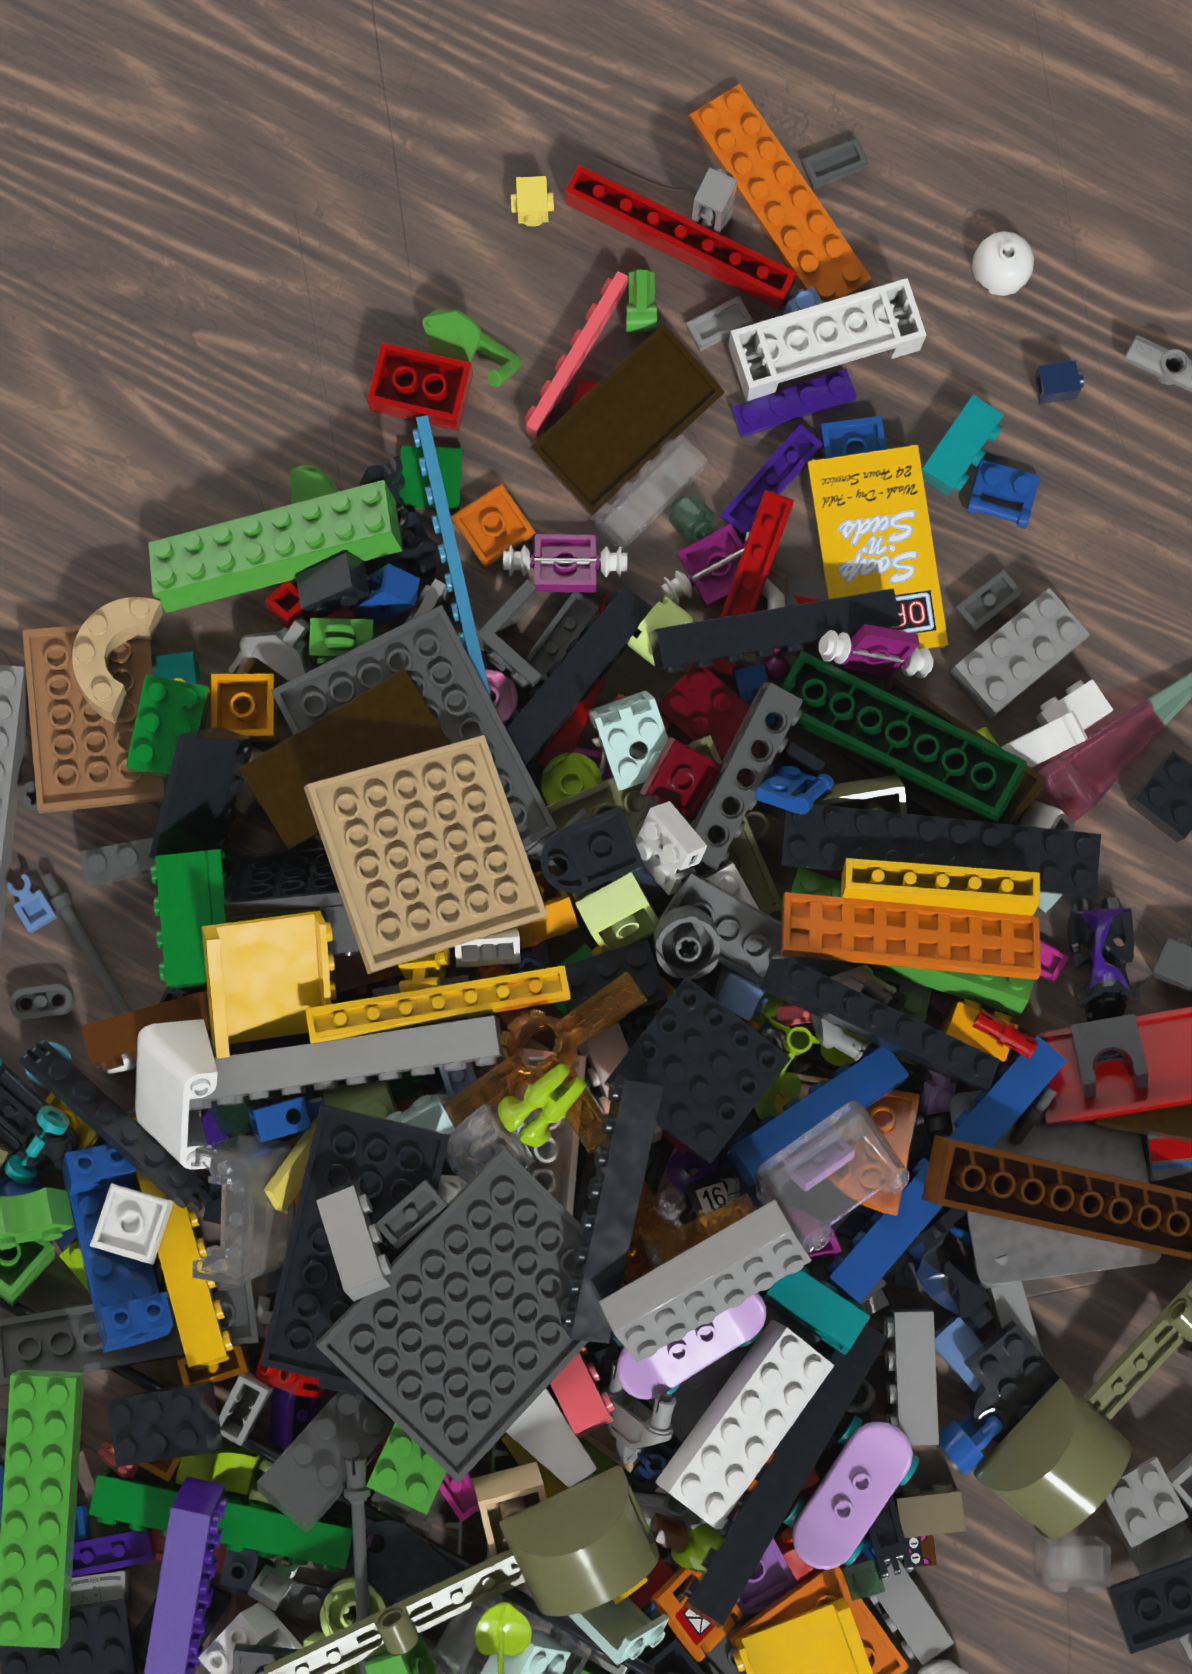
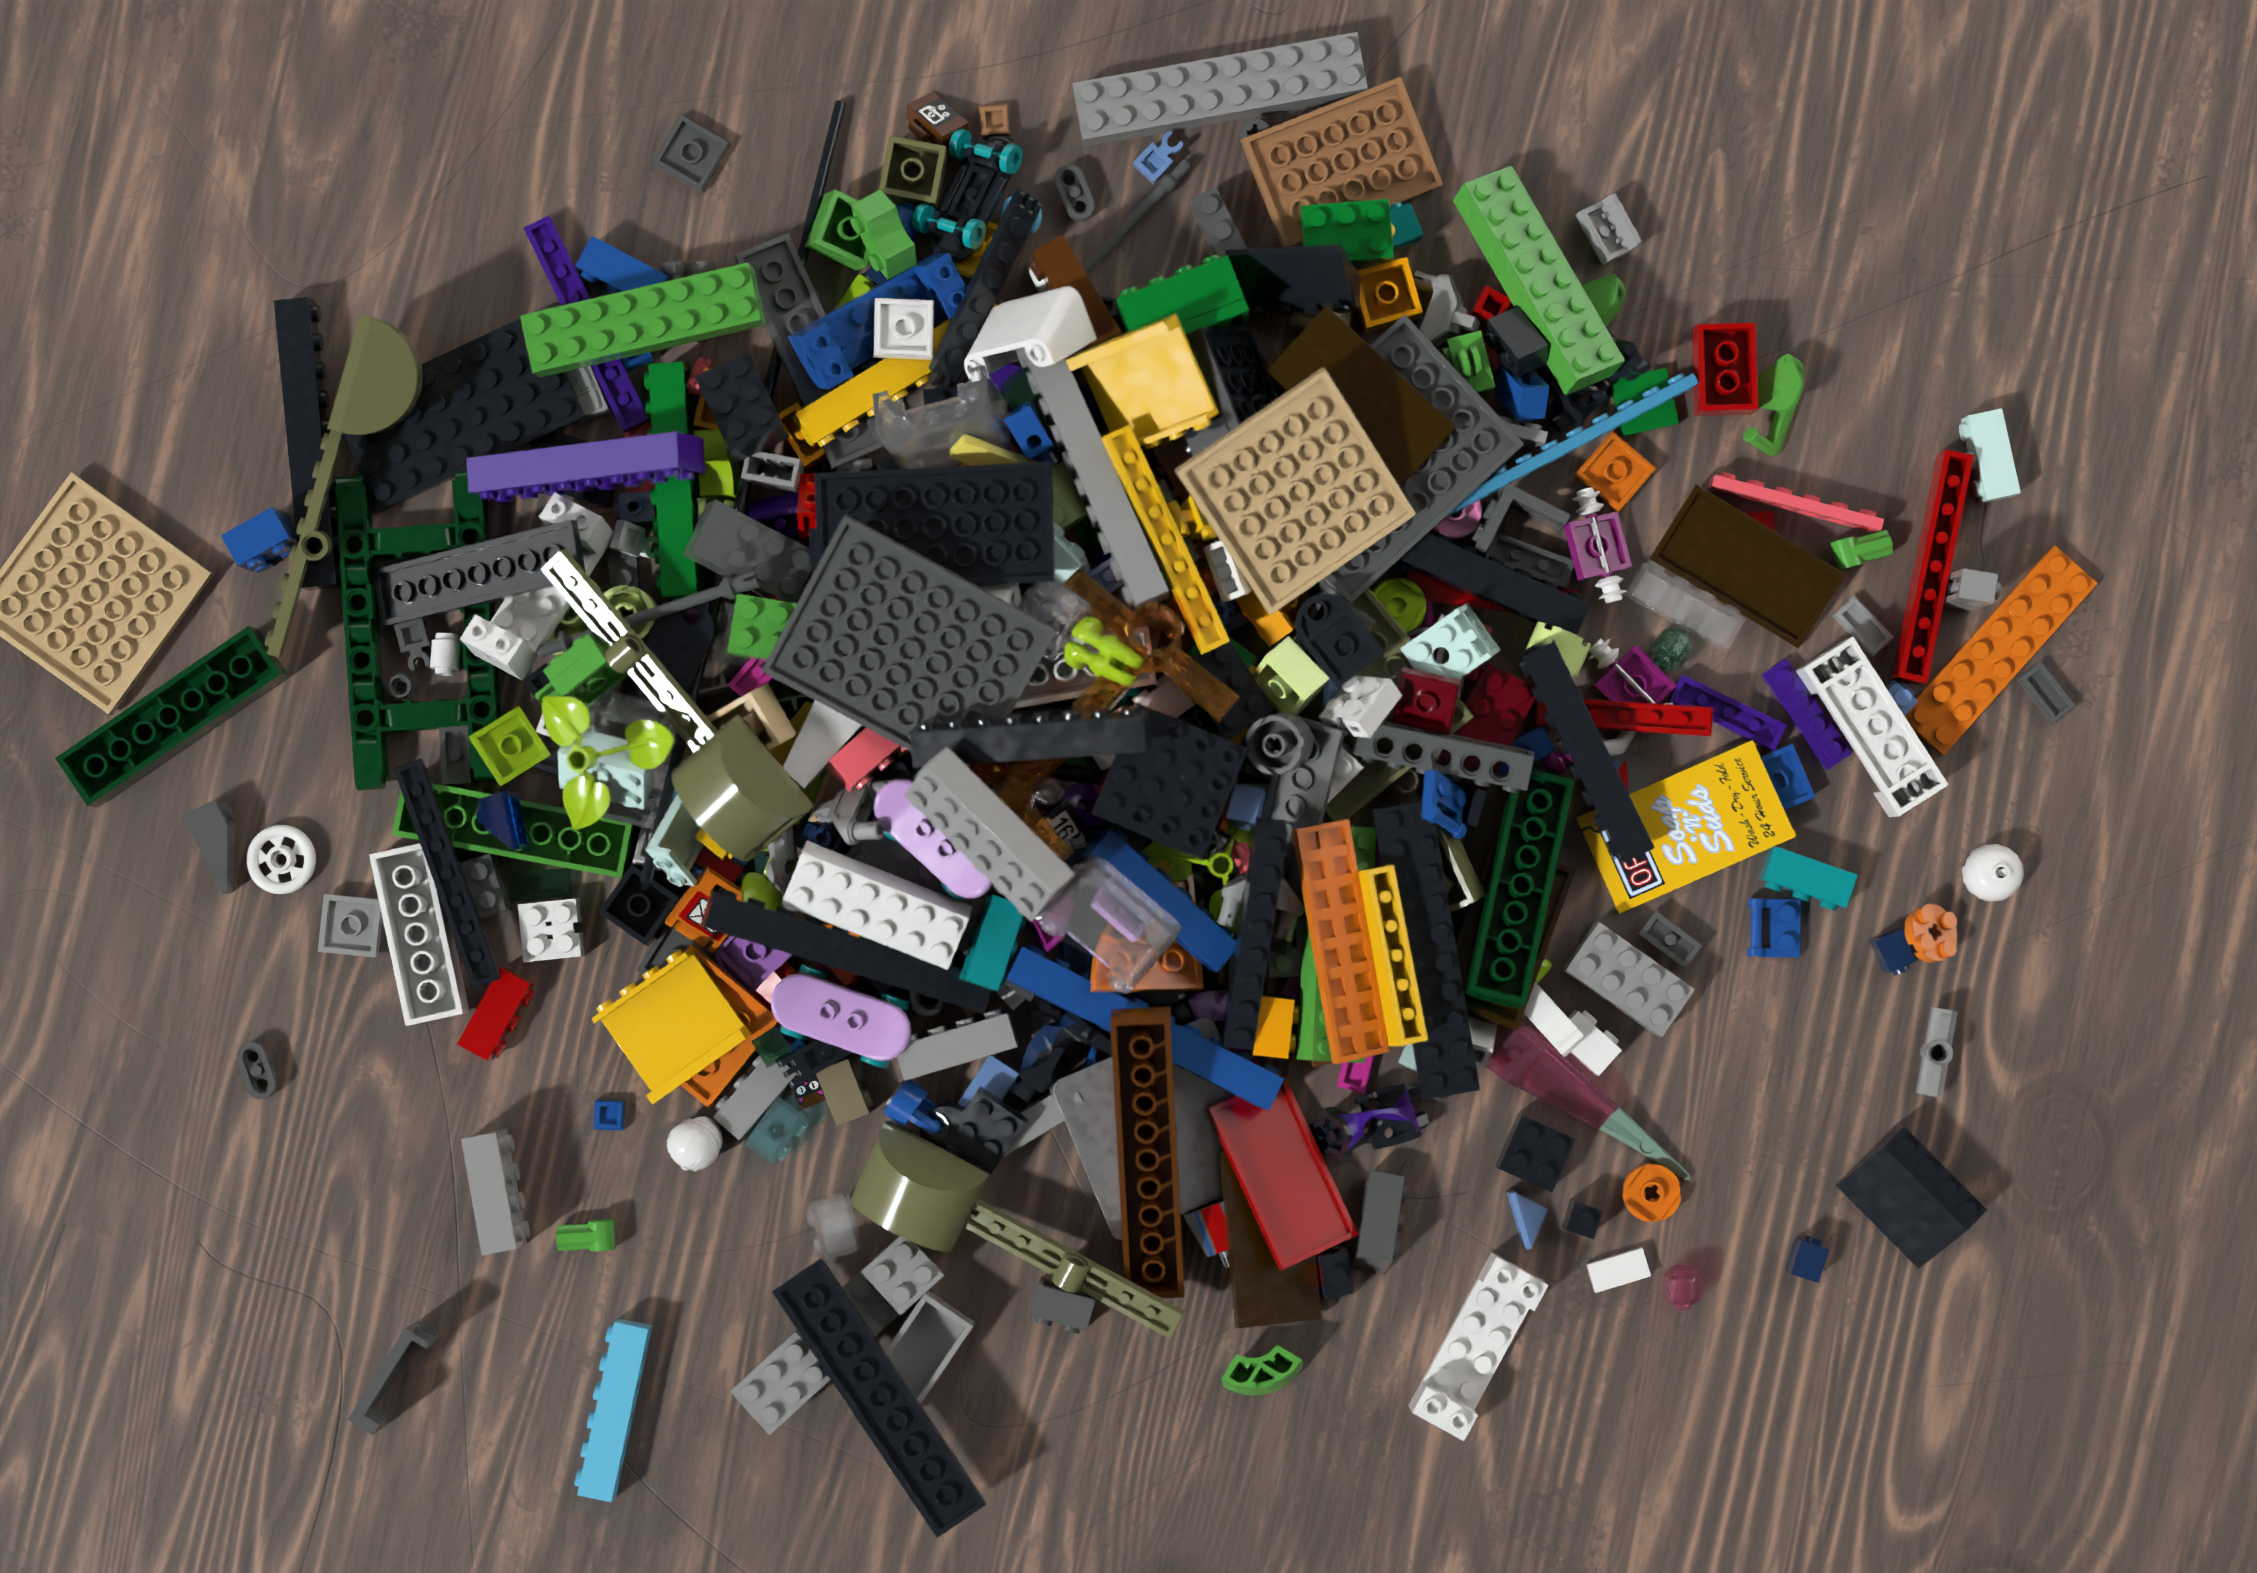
camera: 75 degrees right, 5 degrees up
(98, 639) = (1408, 147): tan brick -> none
(242, 463) = (1608, 229): none -> light grey bracket
(354, 1242) = (940, 524): light grey brick -> none
(411, 1214) = (977, 566): dark grey plate -> none
(532, 200) = (1930, 422): light yellow brick -> none
(598, 150) = (1993, 459): none -> light aqua brick
(669, 1532) = (767, 866): reddish brown plate -> none
(876, 652) = (1591, 847): plate -> none
(963, 1613) = (762, 1138): none -> clear light blue brick
(1005, 1034) = (1276, 1047): red pin -> none
(1033, 1115) = (1213, 1094): dark grey bar -> none
(1064, 334) = (1944, 930): none -> orange plate
(1108, 1041) = (1296, 1143): black piece -> none

